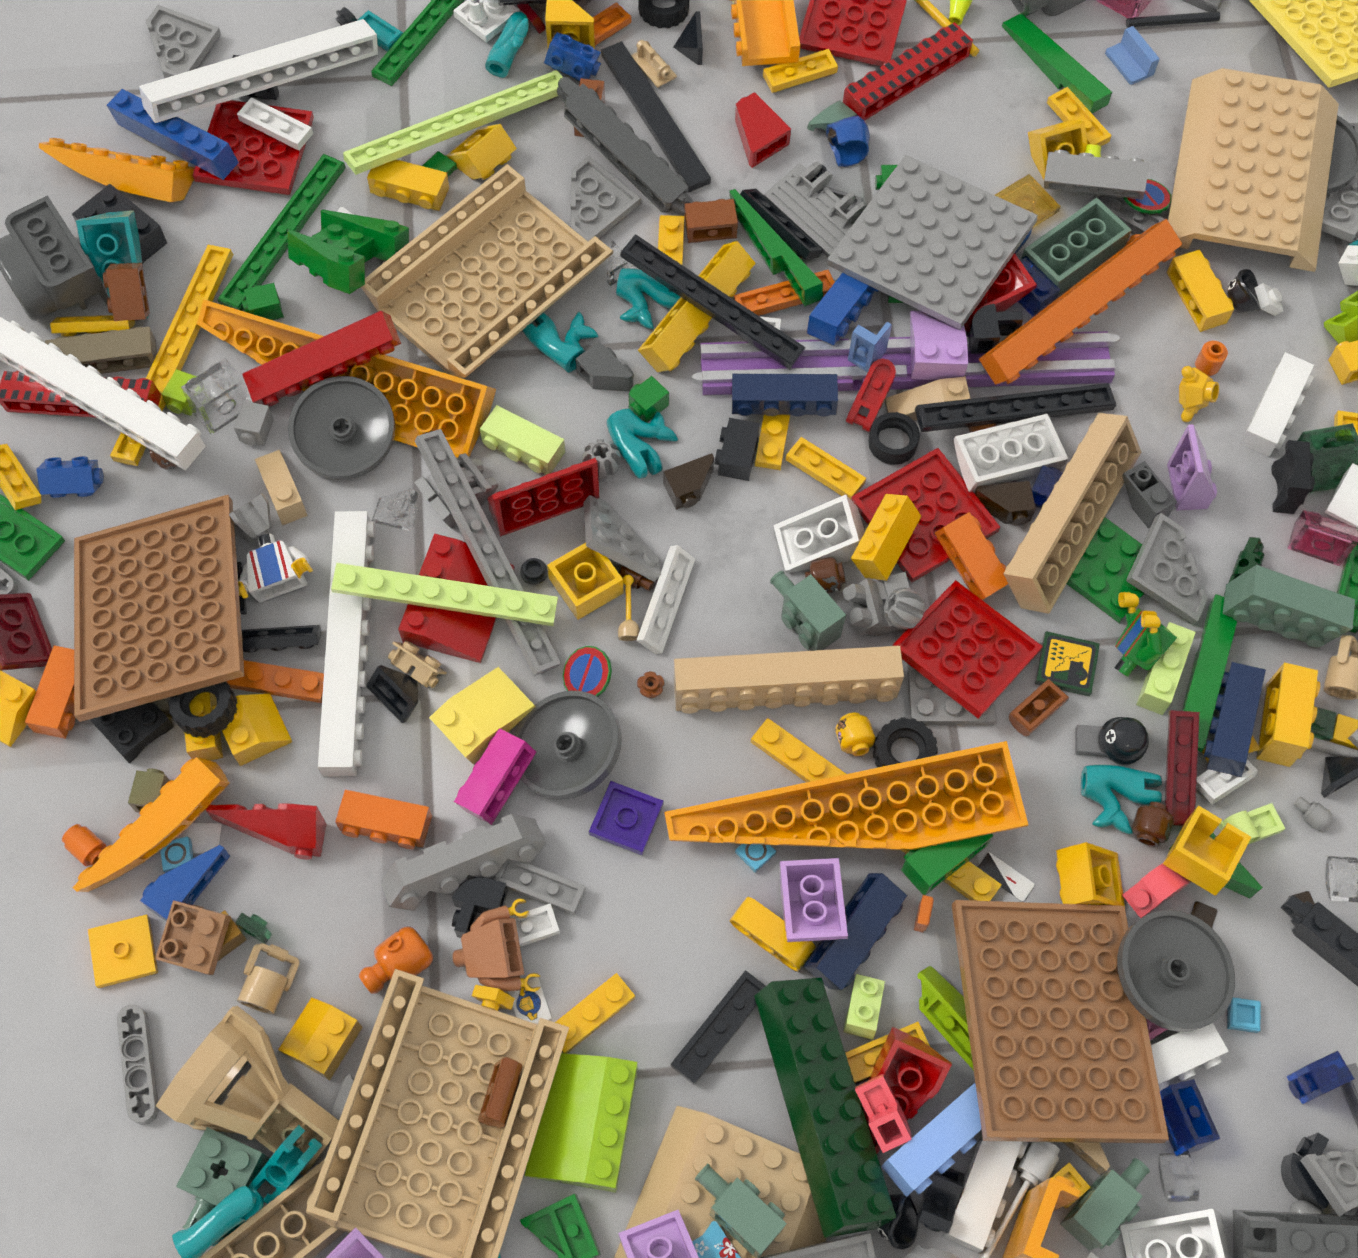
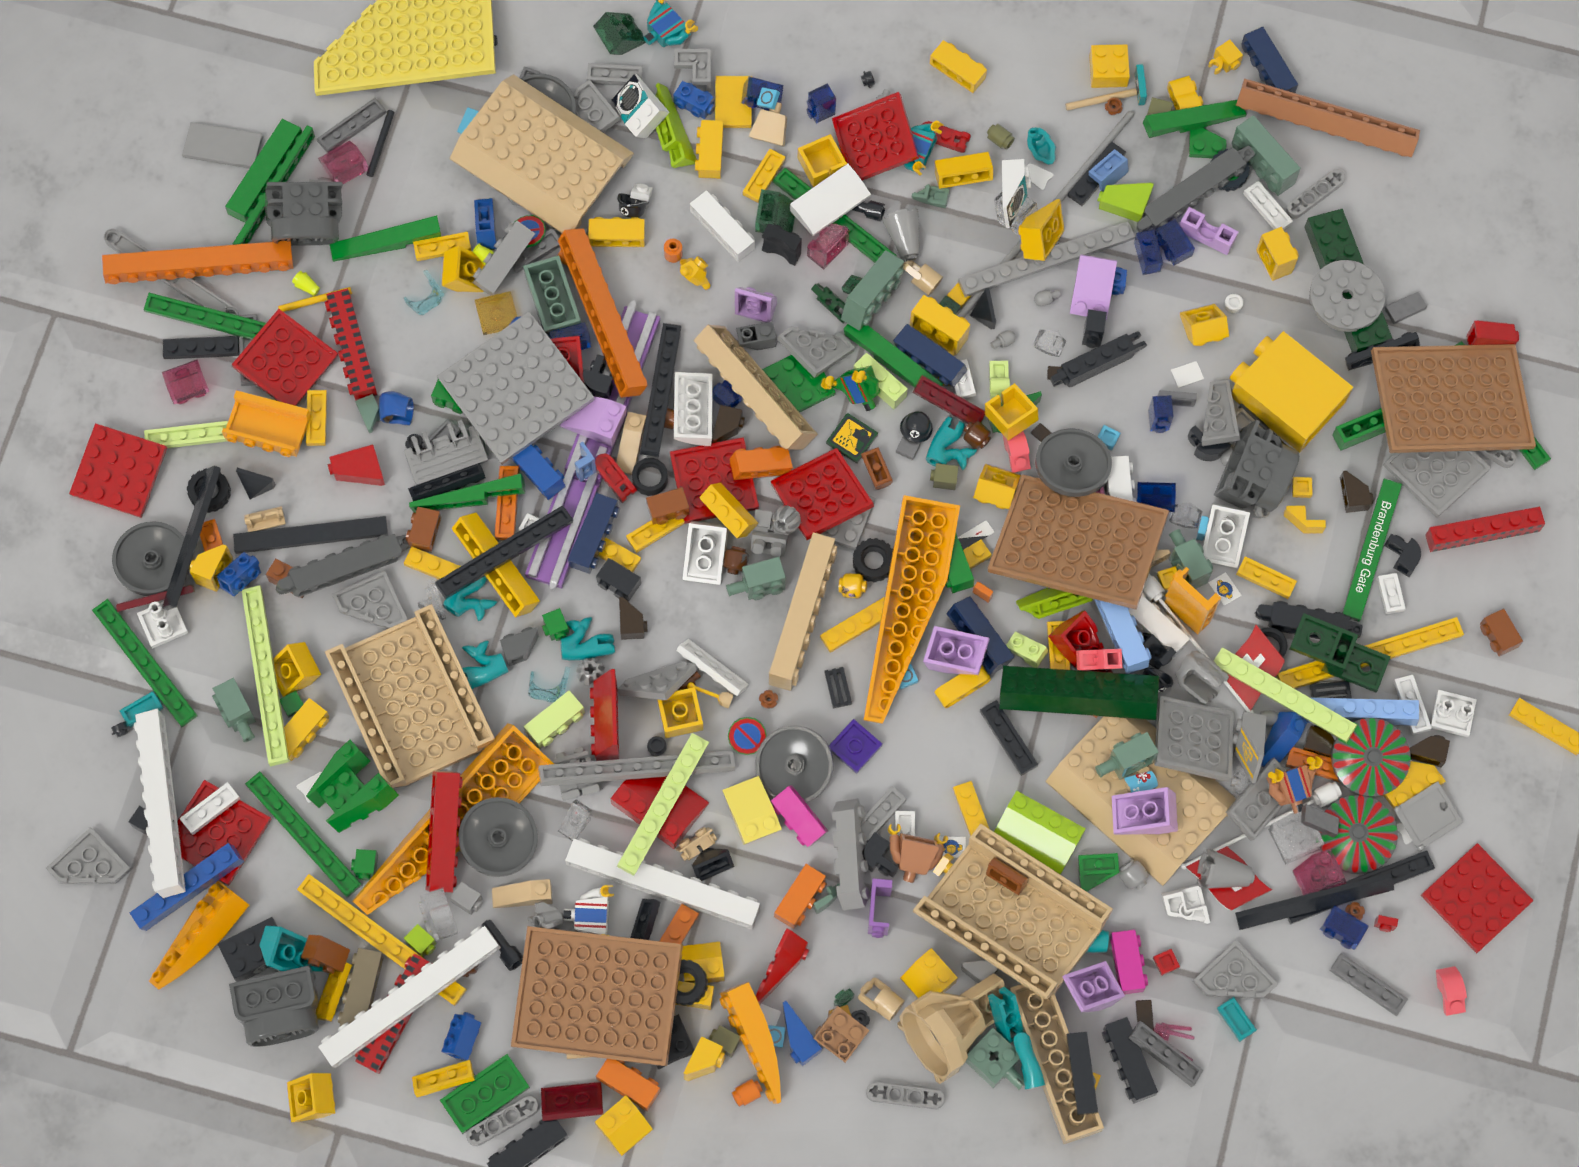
camera: 70 degrees left, 5 degrees up
(110, 767) = (704, 1059): none -> yellow slope
(122, 951) = (827, 1087): yellow plate -> none
(198, 492) = (509, 954): none -> black piece
(228, 955) = (863, 1015): none -> black plate
(384, 854) = (825, 902): none -> sand green slope
(392, 918) = (879, 887): none -> medium lavender panel
(401, 951) = (899, 913): orange piece -> none
(406, 103) = (234, 708): none -> sand green brick
(509, 42) = (206, 622): teal piece -> none
(557, 427) = (548, 695): none -> clear light blue helmet
(723, 755) = (834, 672): none -> black tile
(859, 466) = (667, 506): none -> dark orange brick
(1006, 132) = (431, 301): none -> clear light blue helmet
(1070, 802) = (944, 476): none -> olive brick
(1133, 57) = (403, 186): medium blue panel -> none
(1134, 145) = (485, 223): none -> blue slope
(1171, 1209) = (1202, 528): none -> medium azure tile

